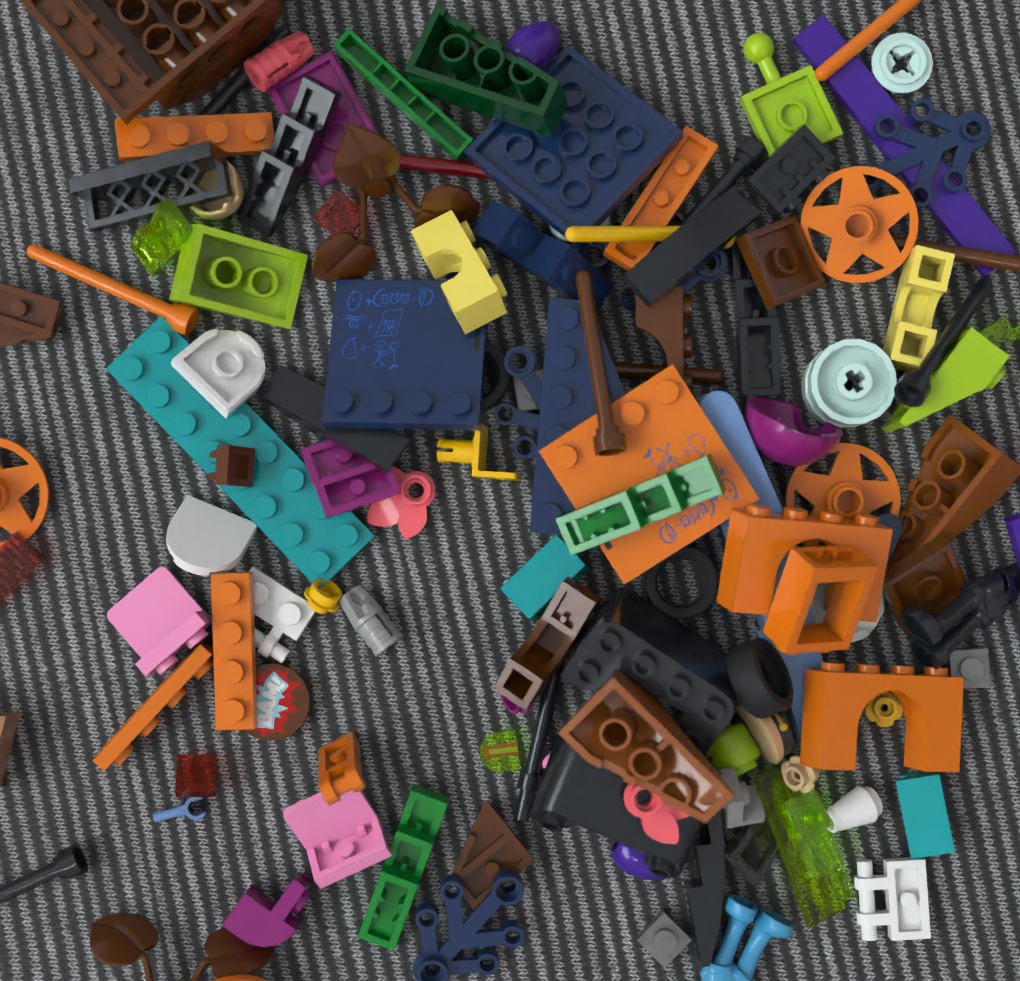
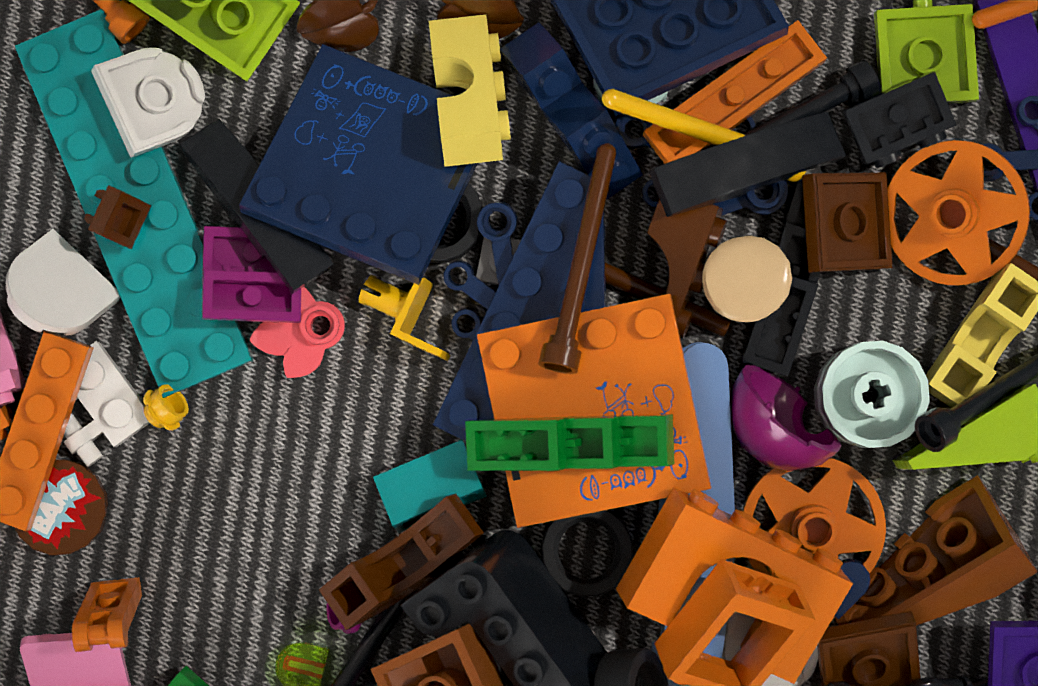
camera: 20 degrees right, 0 degrees up
(370, 620) = (208, 456): light grey hinge -> none
(724, 332) = (746, 278): none -> tan piece

